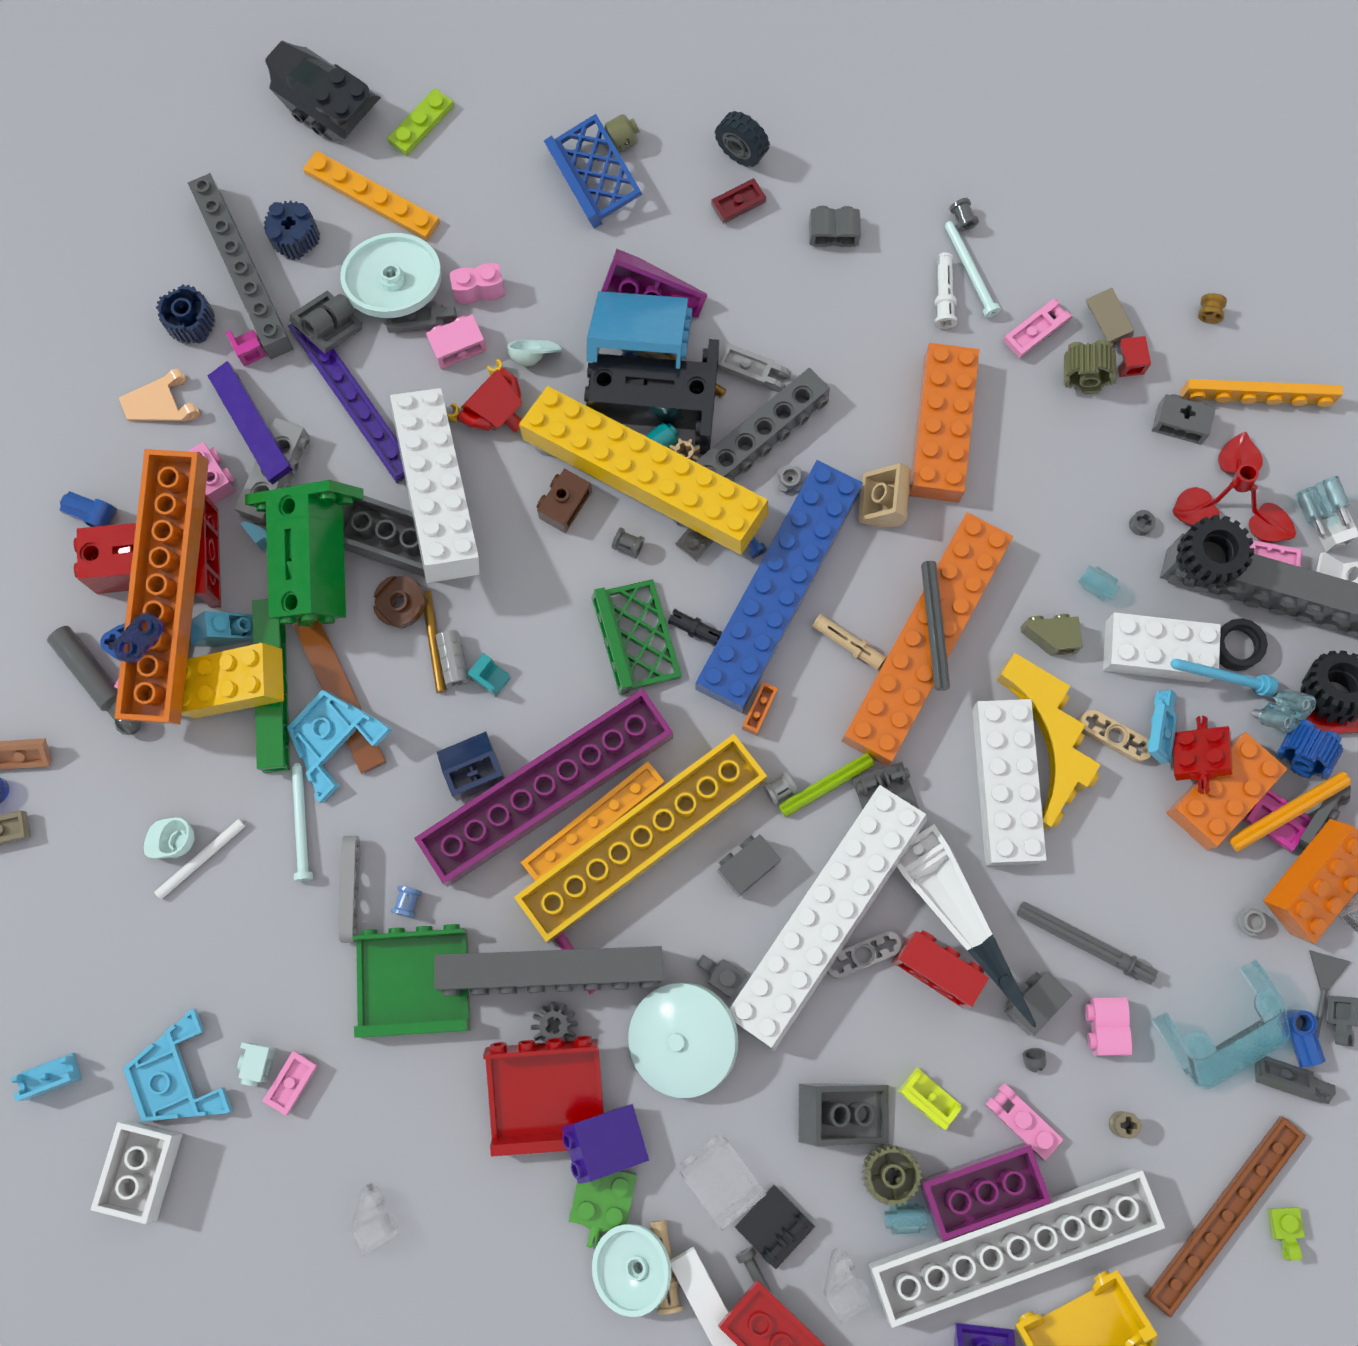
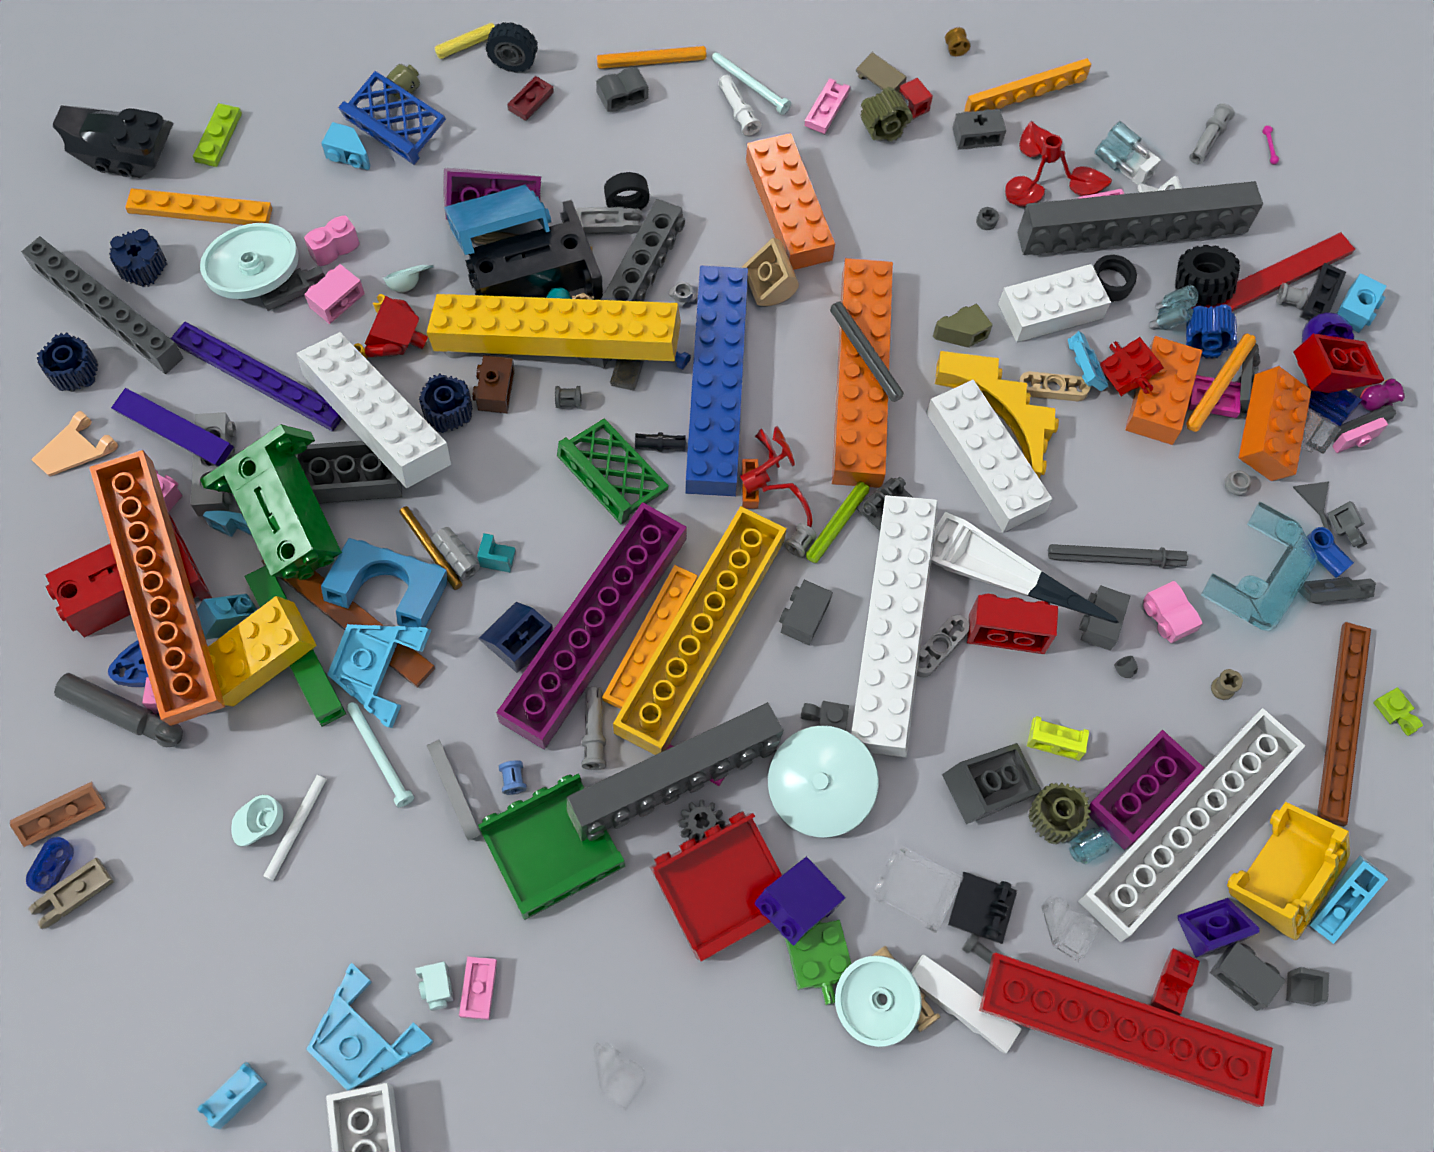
camera: 30 degrees left, 10 degrees down
(91, 512) = (38, 565): blue piece -> none
(139, 640) = (158, 635): clear blue plate -> none
(247, 347) = (138, 370): dark pink panel -> none
(327, 320) = (206, 318): dark grey plate -> none
(363, 631) = (363, 561): none -> dark azure arch
(385, 601) = (378, 512): reddish brown plate -> none
(494, 899) = (593, 739): none -> light grey pin
(512, 514) = (446, 402): none -> dark blue brick
(533, 183) = (344, 146): none -> medium azure slope
(703, 109) = (463, 41): none -> light yellow axle
(767, 711) = (758, 477): none -> red plant
(783, 347) = (627, 182): none -> black tyre
(824, 625) = (797, 400): tan pin -> none
(882, 200) = (651, 57): none -> light orange axle
(964, 214) = (724, 43): dark grey bush -> none
(1025, 1122) = (1142, 720): bright pink plate -> none
(1099, 583) = (978, 274): clear light blue brick -> none
(1229, 538) = (1066, 189): black tyre -> none
(1262, 685) = (1147, 300): medium azure piece -> none

